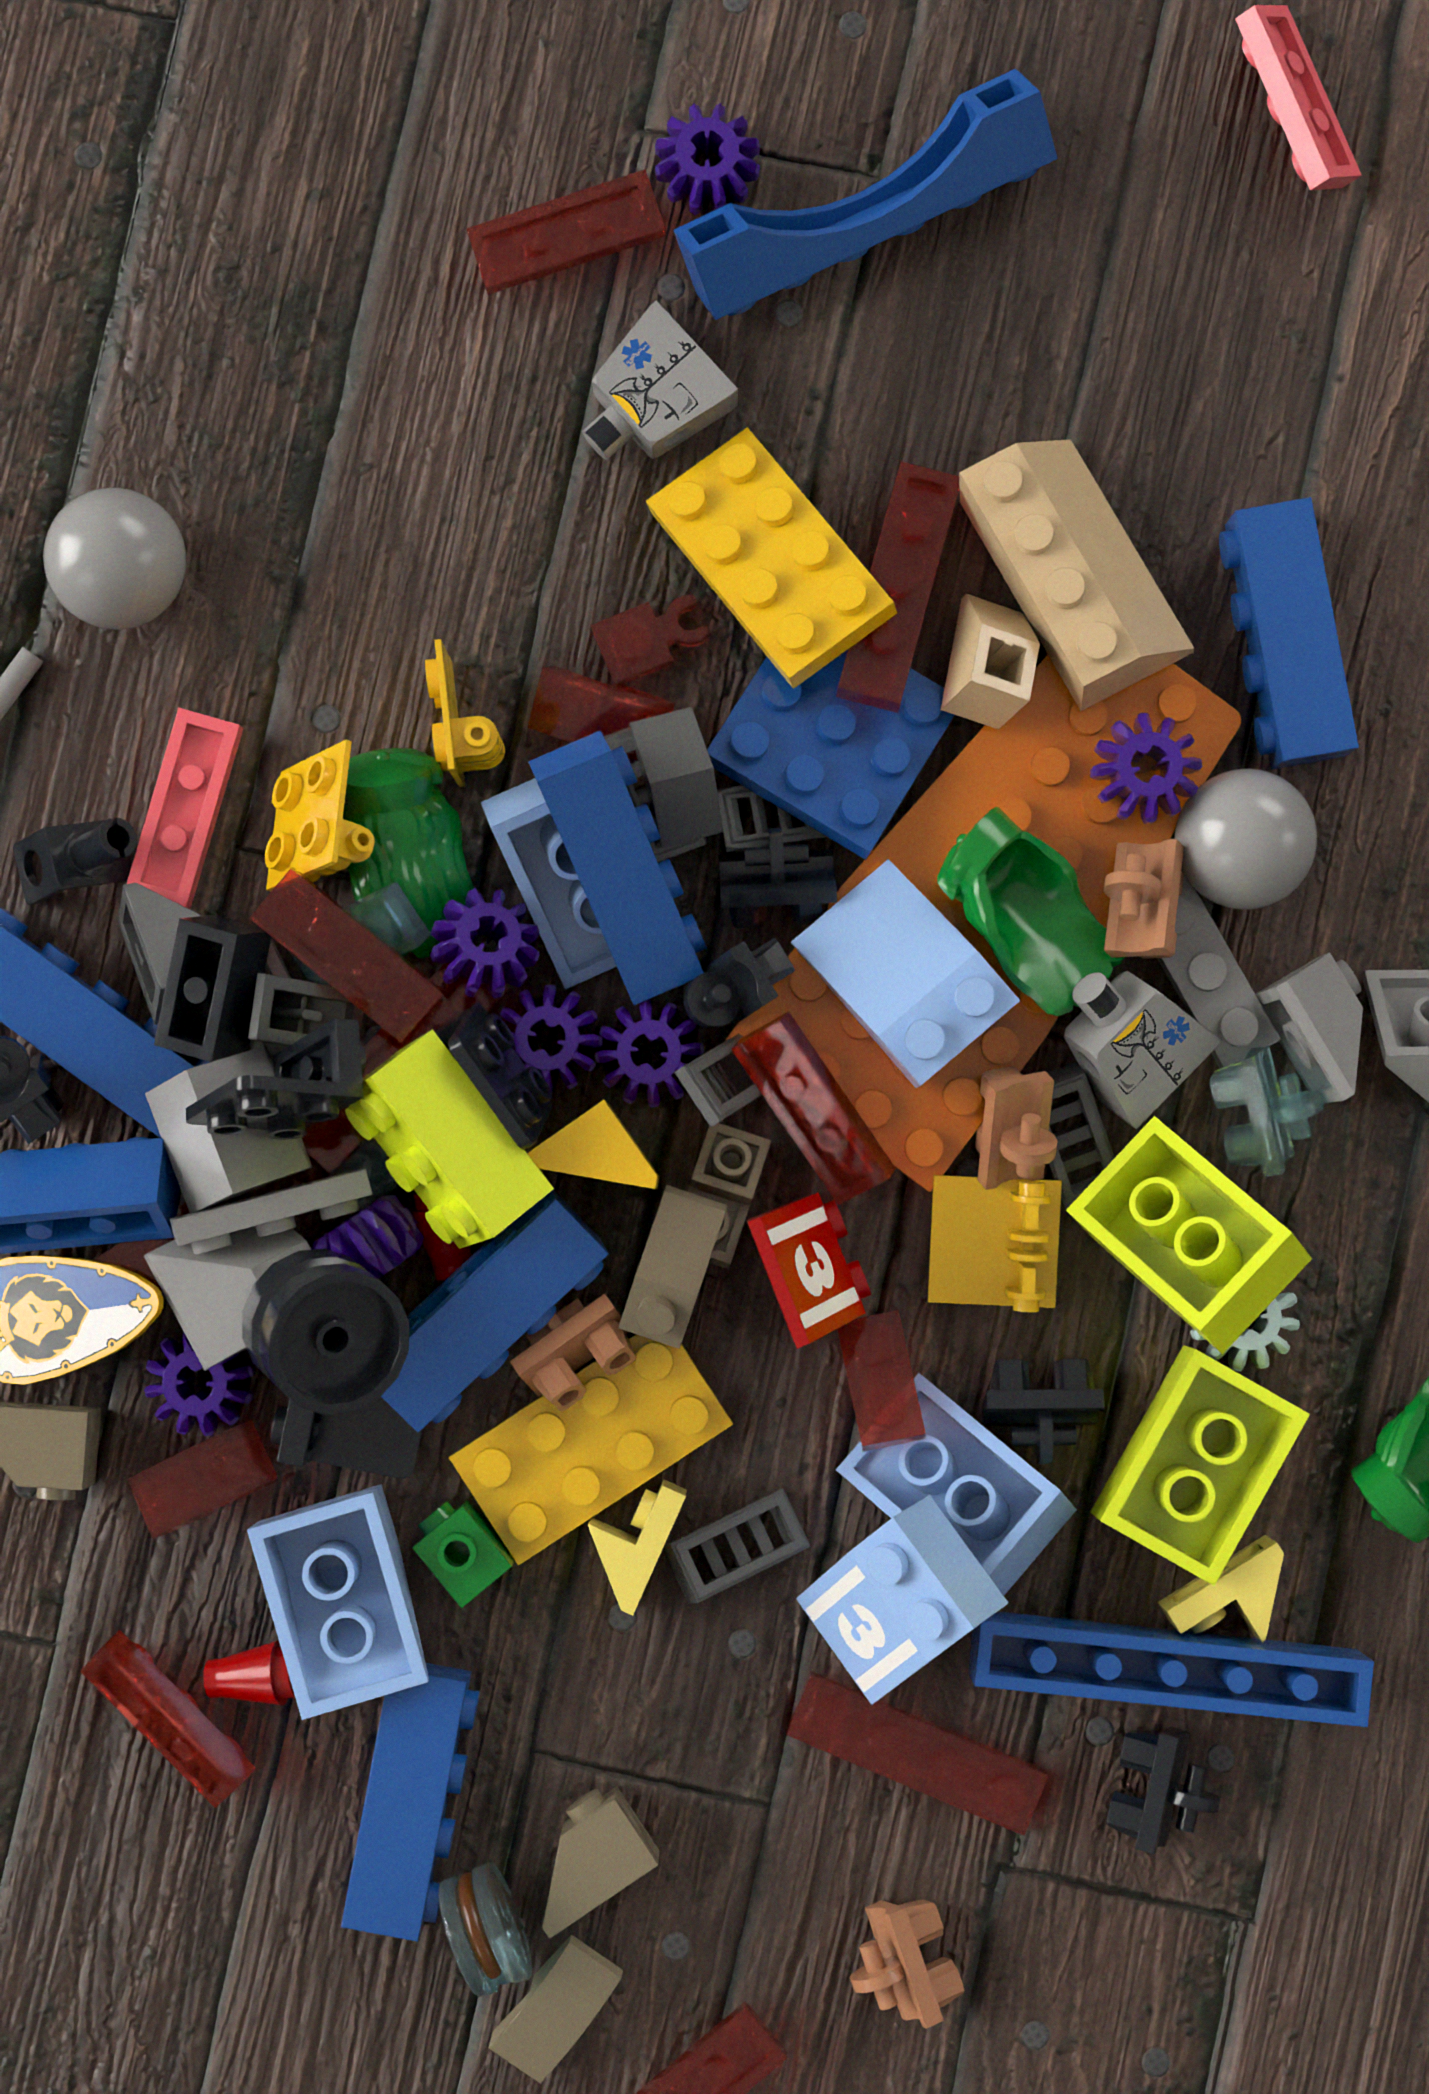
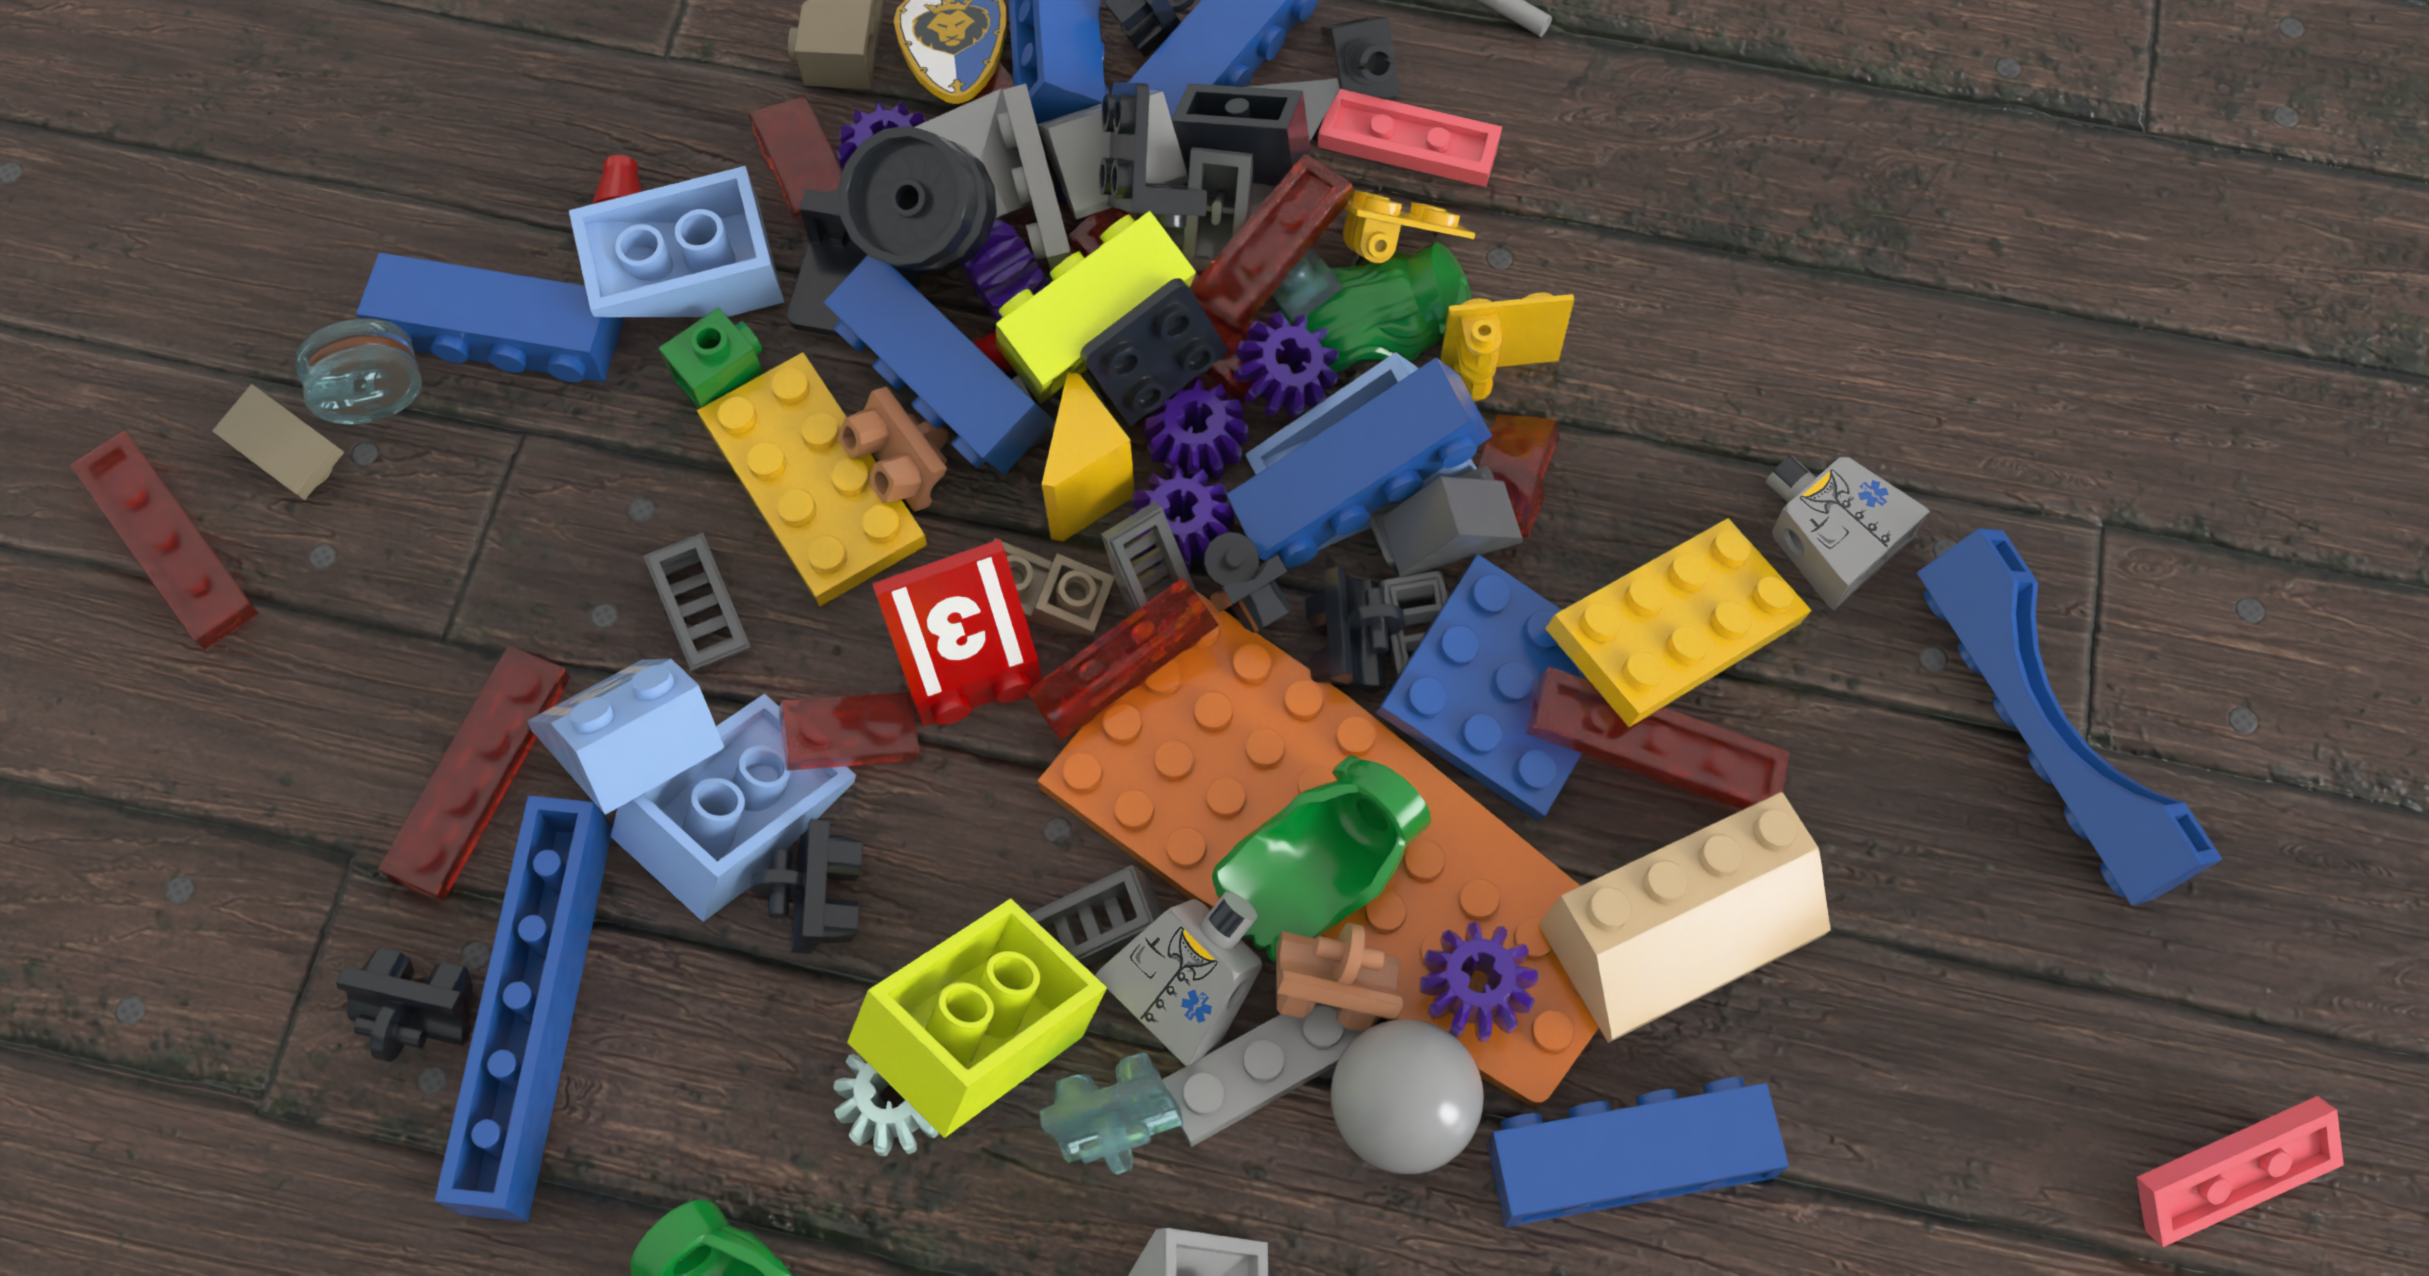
camera: 90 degrees right, 20 degrees down
(114, 558) = (1635, 68): light grey piece -> none
(168, 1718) = (589, 132): clear red plate -> none
(566, 232) = (1989, 447): clear red plate -> none
(597, 1857) = (415, 473): dark tan slope -> none
(632, 1559) = (699, 502): light yellow slope -> none
(638, 642) = (1590, 518): clear red plate -> none
(672, 1266) = (954, 516): dark tan slope -> none
(707, 137) = (2081, 570): dark purple gear -> none
(896, 1965) = (240, 767): nougat hips -> none
(904, 973) = (1253, 742): light blue slope -> none
(990, 663) = (1584, 826): tan slope -> none
(994, 1242) = (983, 845): yellow hinge -> none
(1015, 1126) = (1100, 848): nougat hips -> none
(1199, 1464) = (735, 1038): neon yellow brick -> none
(1246, 1581) = (609, 1091): light yellow slope -> none
(1319, 1024) = (1206, 1170): light grey slope -> none

